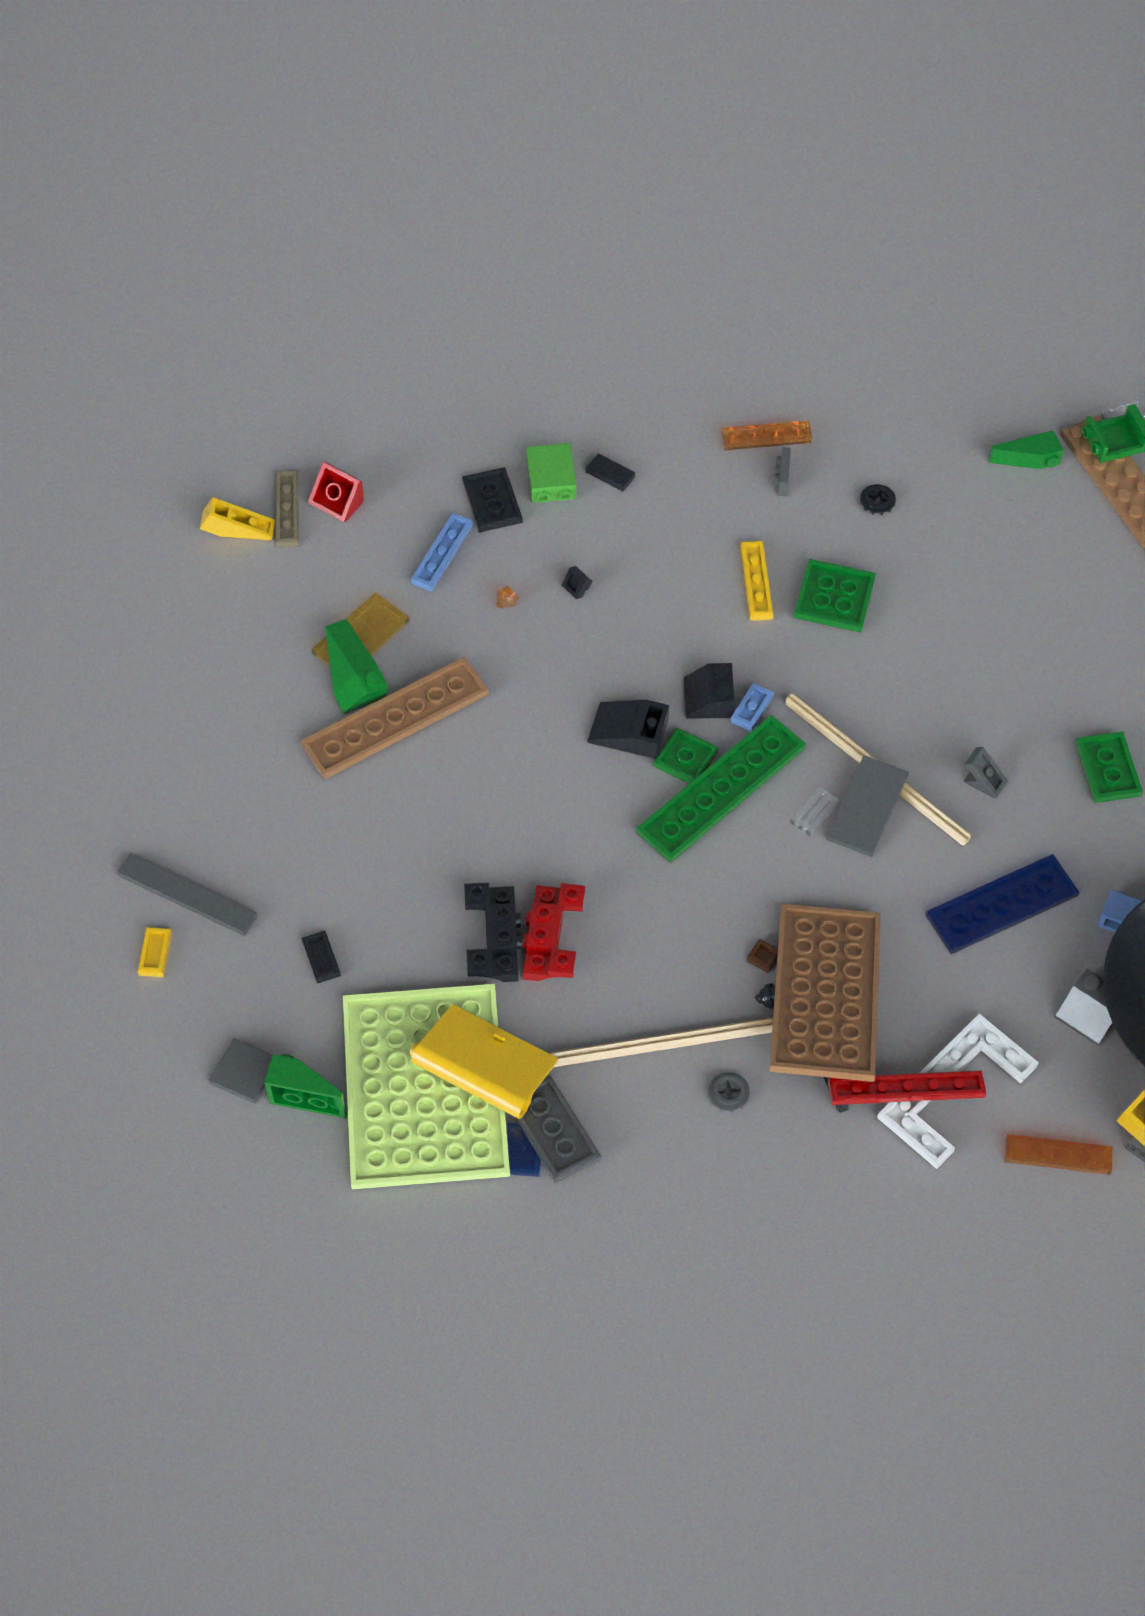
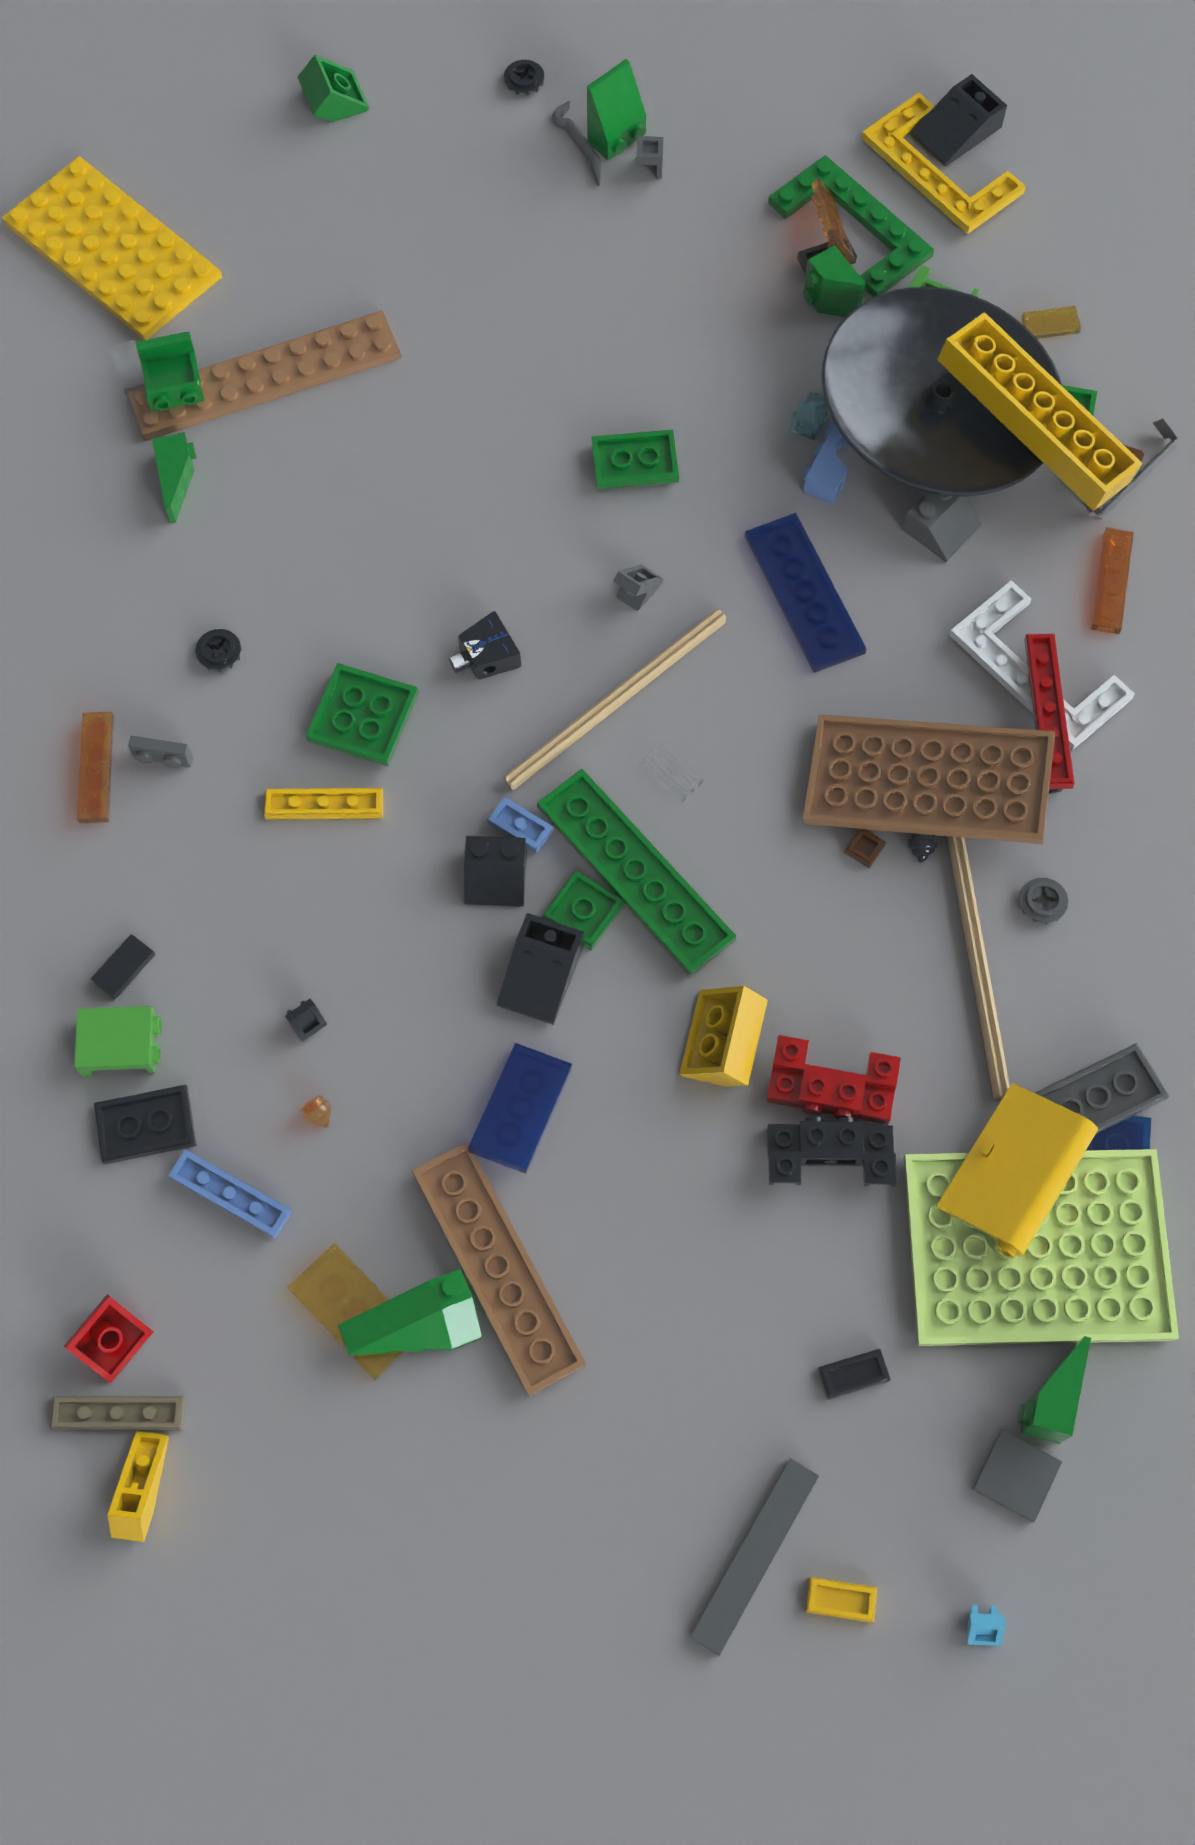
camera: 85 degrees left, 10 degrees up
(130, 1044) = (985, 1628): none -> medium azure tile
(517, 721) = (520, 1108): none -> clear blue tile
(584, 856) = (724, 1036): none -> yellow slope
(867, 805) = (673, 711): dark grey tile -> none
(906, 672) = (486, 649): none -> black torso

